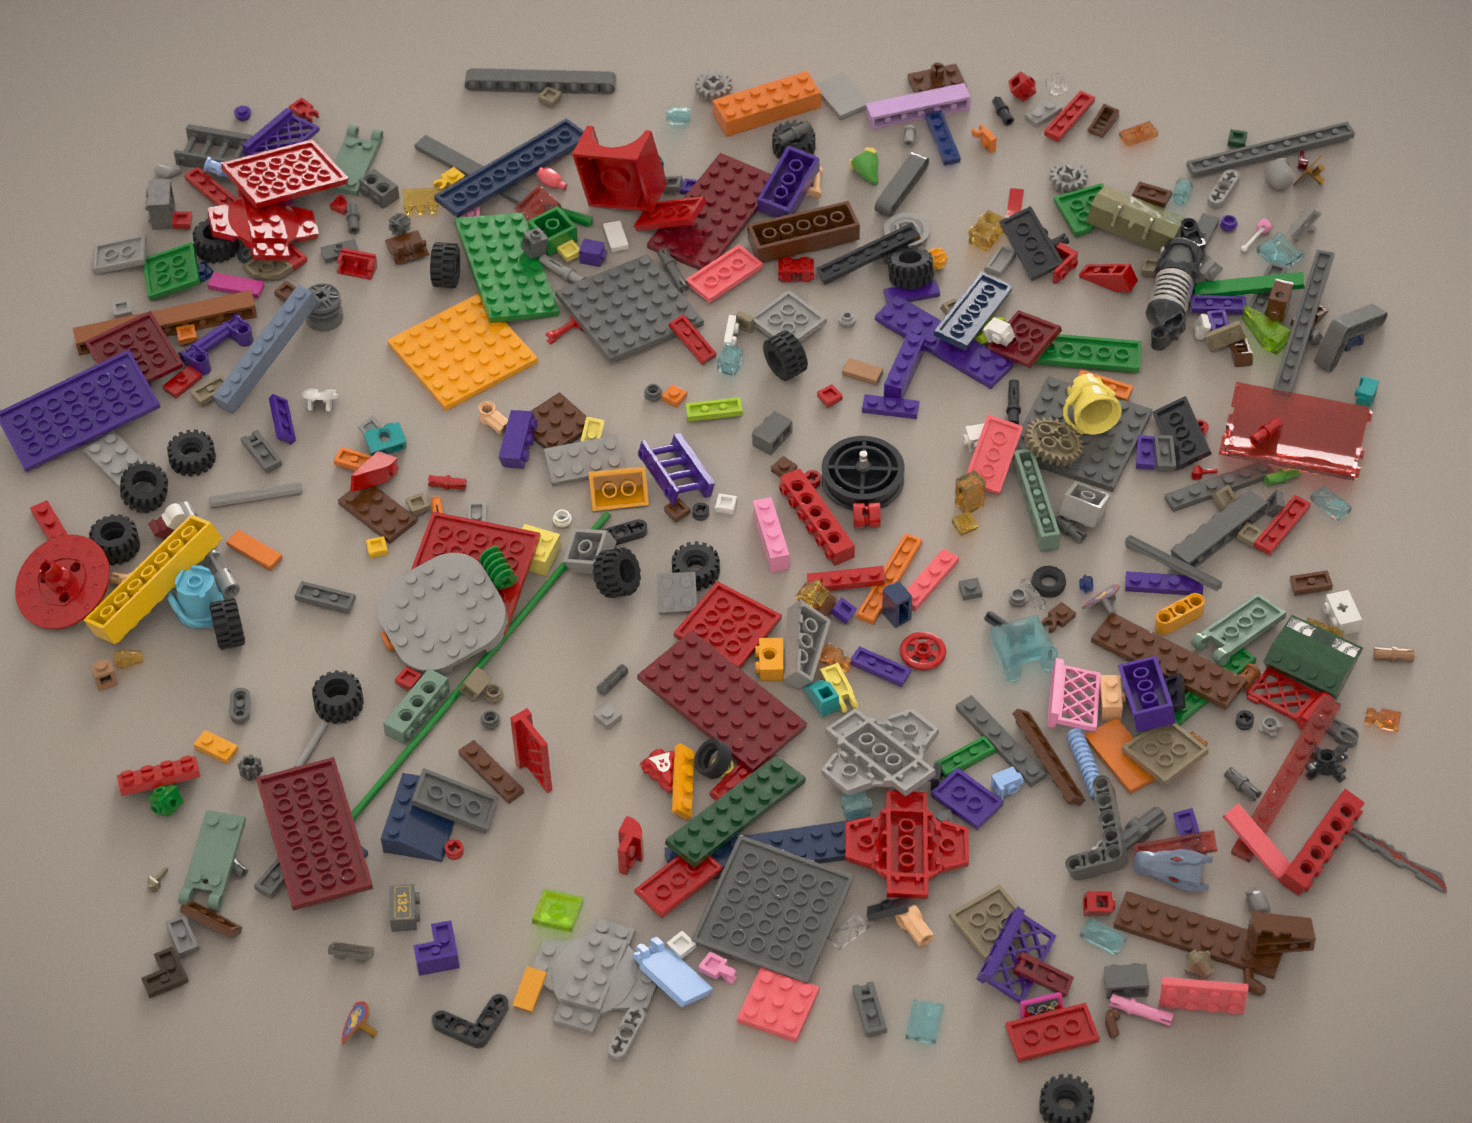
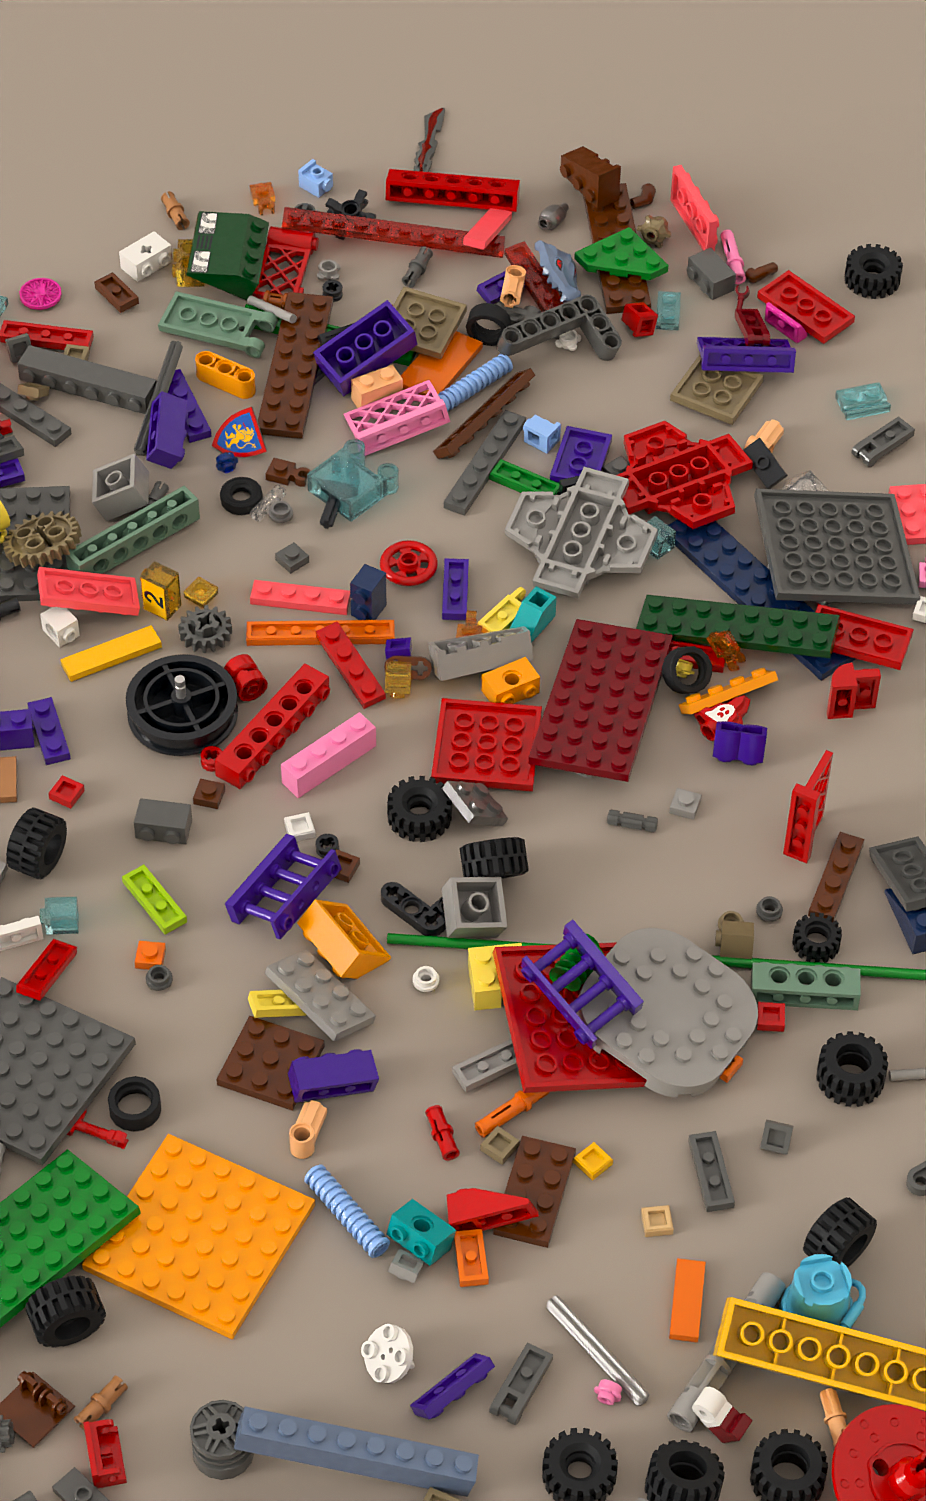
camera: 120 degrees left, 0 degrees up
(226, 486) = (608, 1392): none -> bright pink plate
(314, 559) = (657, 1221): none -> tan tile
(323, 639) = (776, 1137): none -> dark grey plate
(387, 273) = (101, 1401): none -> medium nougat pin
(428, 416) = (347, 1211): none -> light blue piece
(449, 742) = (821, 926): none -> black tyre
(477, 562) = (591, 959): none -> dark purple fence
(568, 339) = (138, 1121): none -> black tyre
(630, 760) = (739, 742): none -> dark purple brick
(718, 788) = (725, 646): none -> clear orange plate
(927, 512) = (205, 628): none -> dark grey gear
(939, 460) = (111, 653): none -> yellow tile
(1094, 993) = (741, 296): none -> dark red hand
(1131, 552) = (167, 430): none -> dark purple brick
(1140, 792) = (487, 312): none -> black tyre
(1168, 820) = (513, 285): none -> light nougat piece
(1174, 921) = (622, 255): none -> green plate
(1230, 660) = (265, 306): none -> light grey bar
(1336, 539) = (40, 293): none -> dark pink wheel
(1386, 757) = (315, 179): none -> light blue brick

